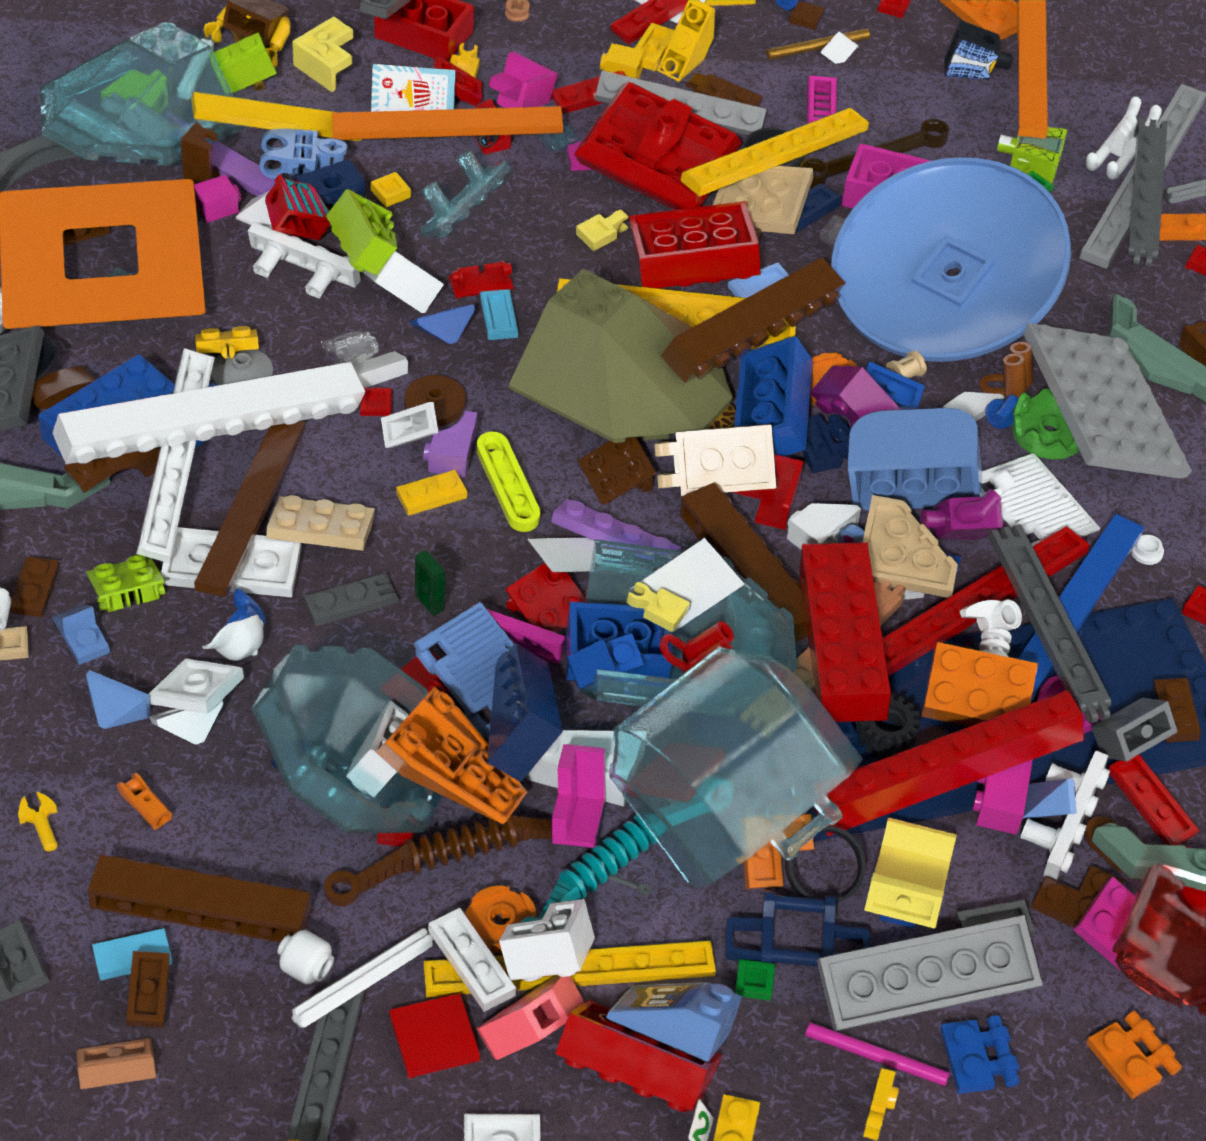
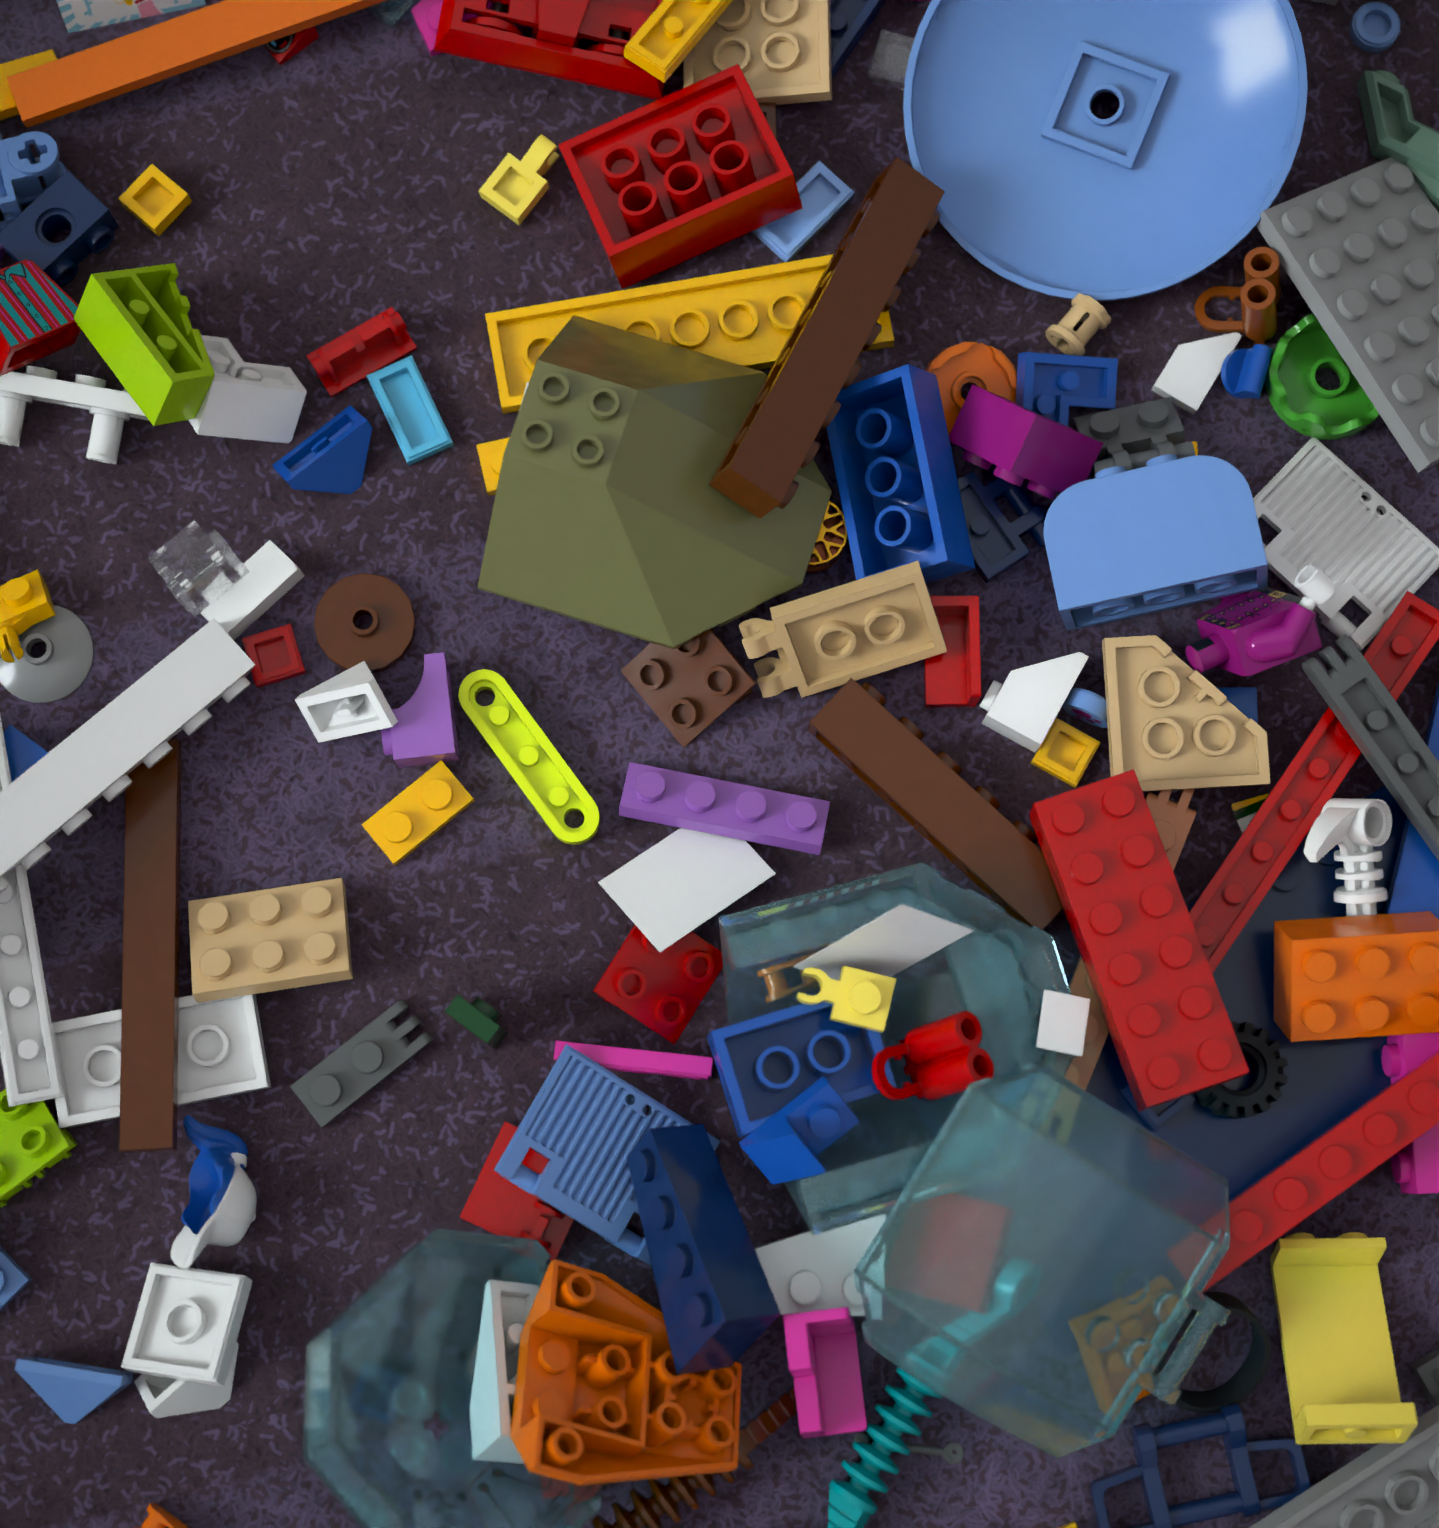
camera: 15 degrees left, 30 degrees up
(473, 194) = (289, 171): clear light blue plate -> none
(786, 653) = (1063, 1023): none -> white sticker
(1127, 283) = (1374, 27): none -> medium blue tile

